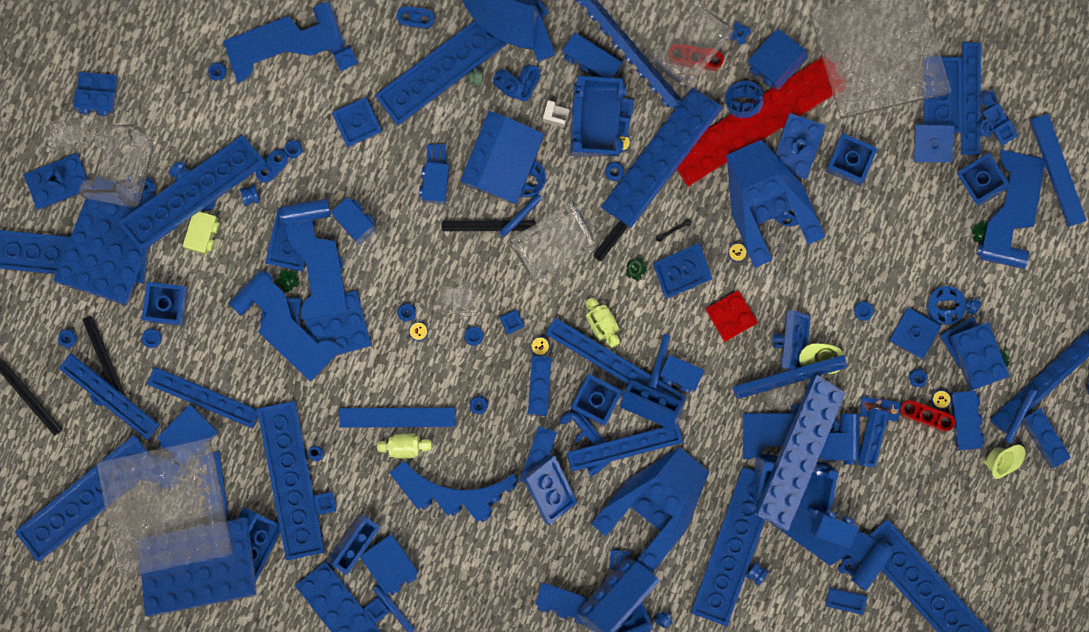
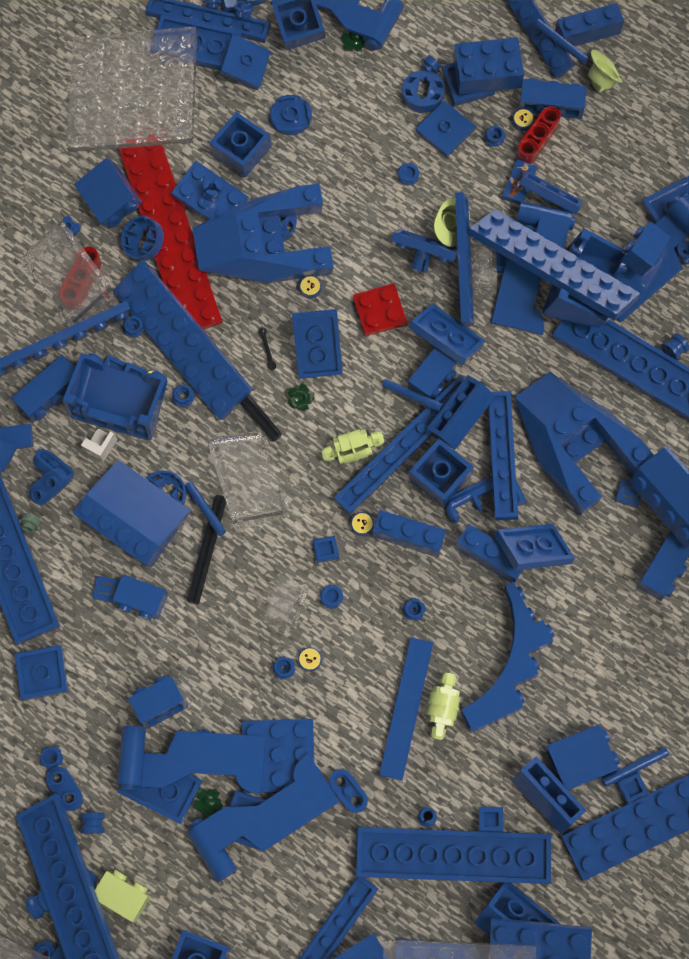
camera: 70 degrees left, 10 degrees down
(321, 387) = (348, 791): none -> blue plate
(664, 109) = (131, 321): none -> blue plate
(719, 377) = (447, 334): none -> blue plate
(889, 196) = (293, 120): none -> blue tile

